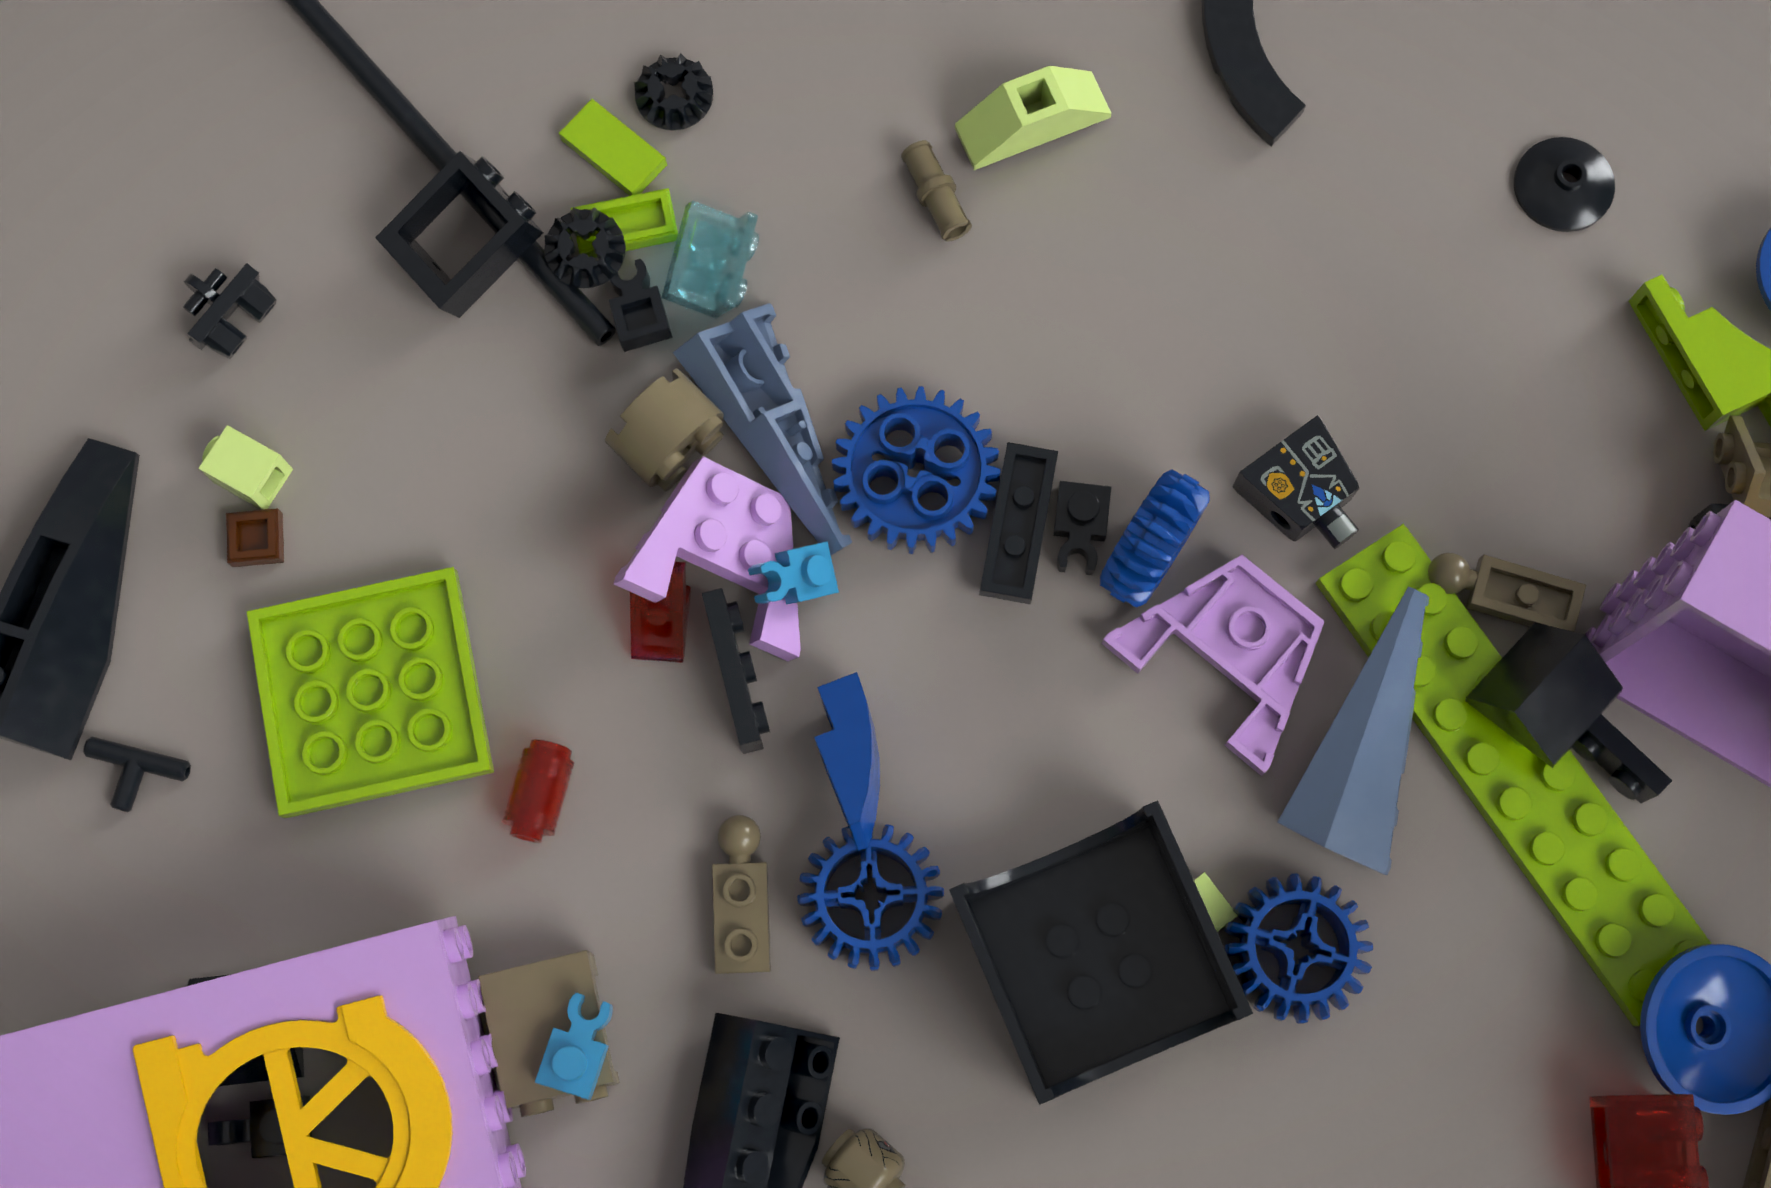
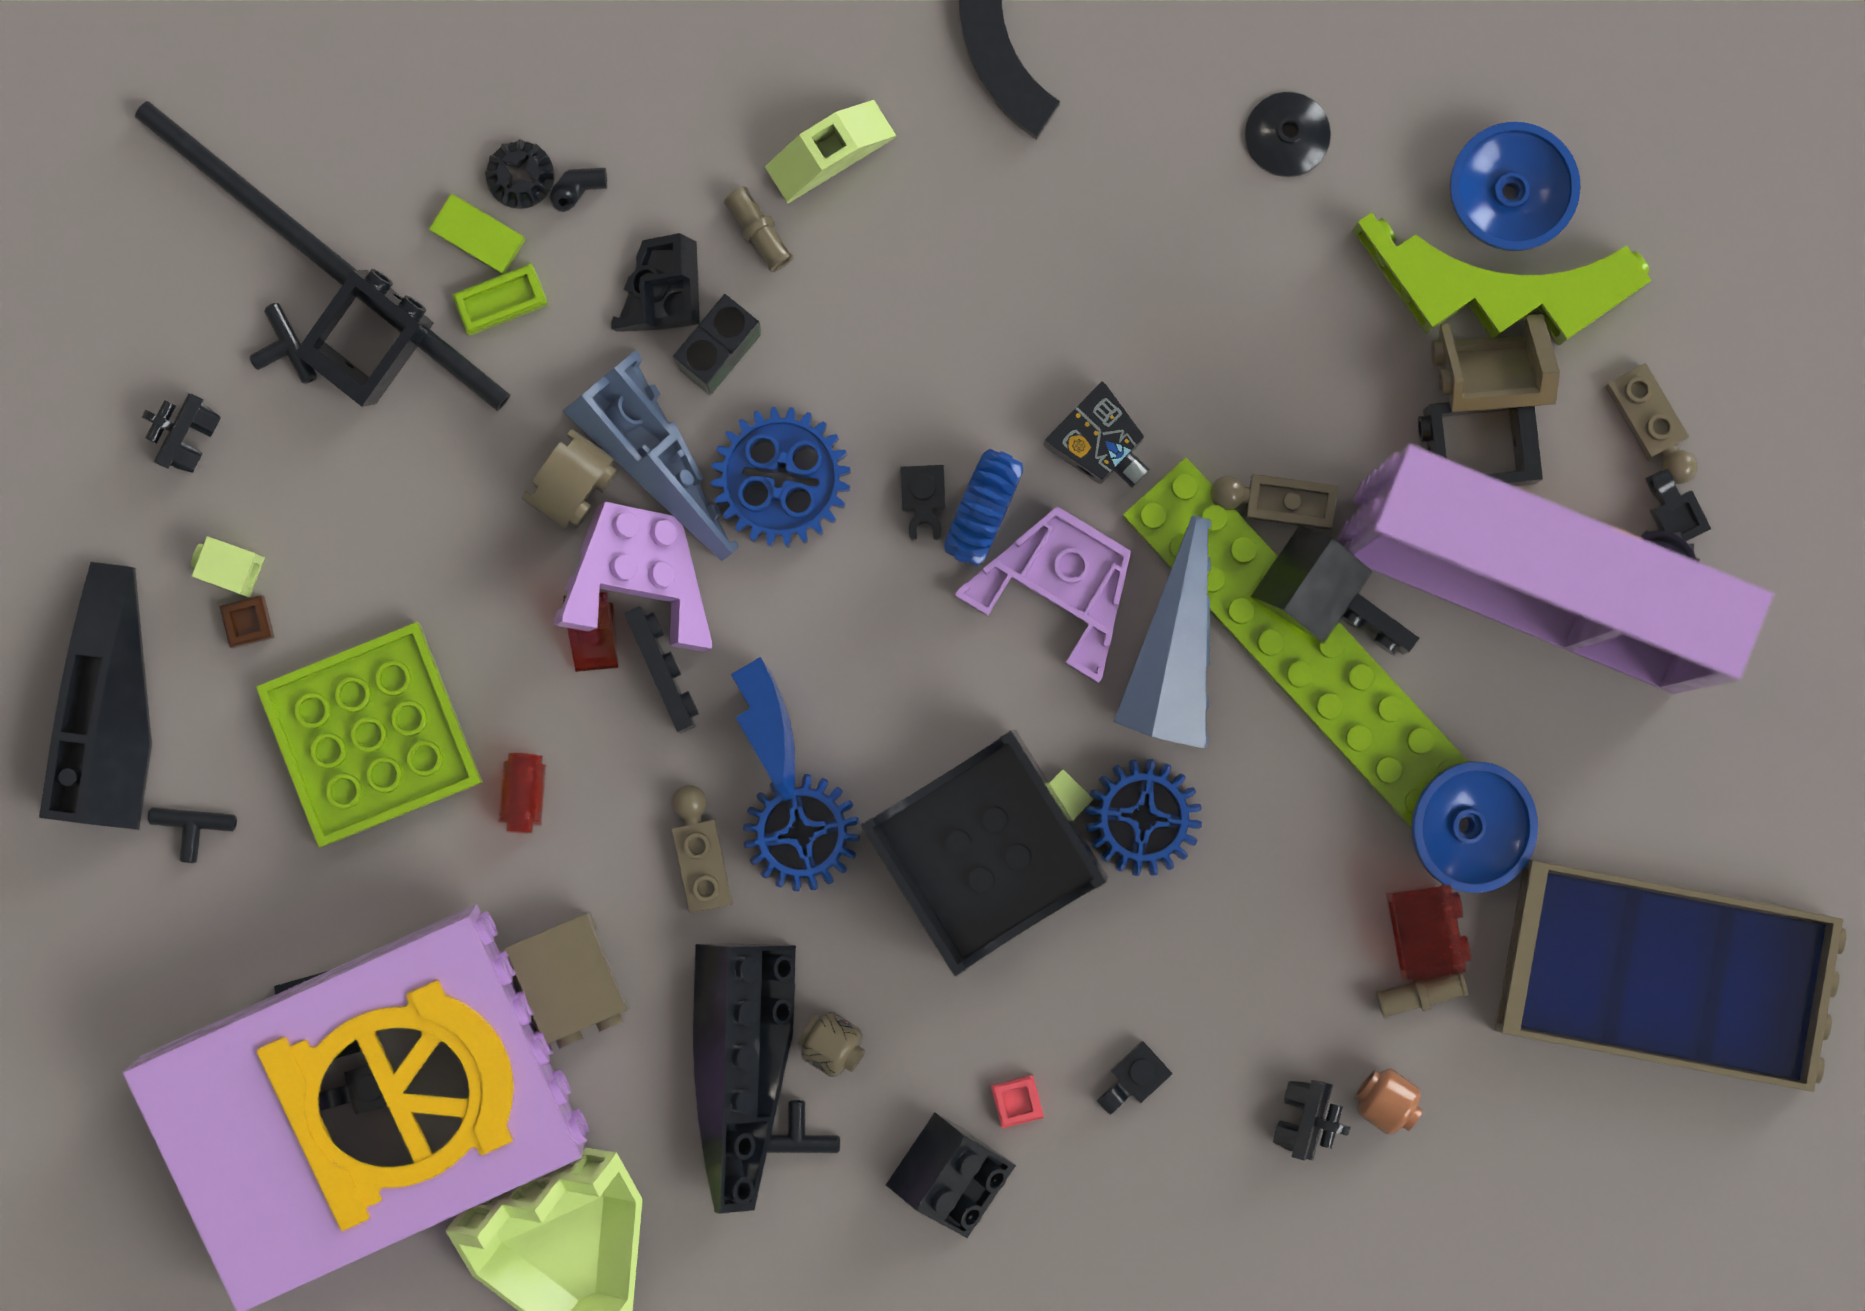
camera: 10 degrees left, 10 degrees up
(365, 236) = (286, 345): none -> black piece
(573, 1057) = (592, 998): dark azure plate -> none
(584, 270) = (474, 351): black gear -> none
(638, 311) = (527, 377): black plate -> none
(710, 260) = (579, 322): clear light blue bracket -> none
(734, 111) = (574, 184): none -> black arm
(798, 575) = (700, 583): dark azure plate -> none
(814, 237) = (662, 286): none -> black slope
(874, 326) = (725, 361): none -> black piece
(1018, 523) = (872, 507): black plate -> none

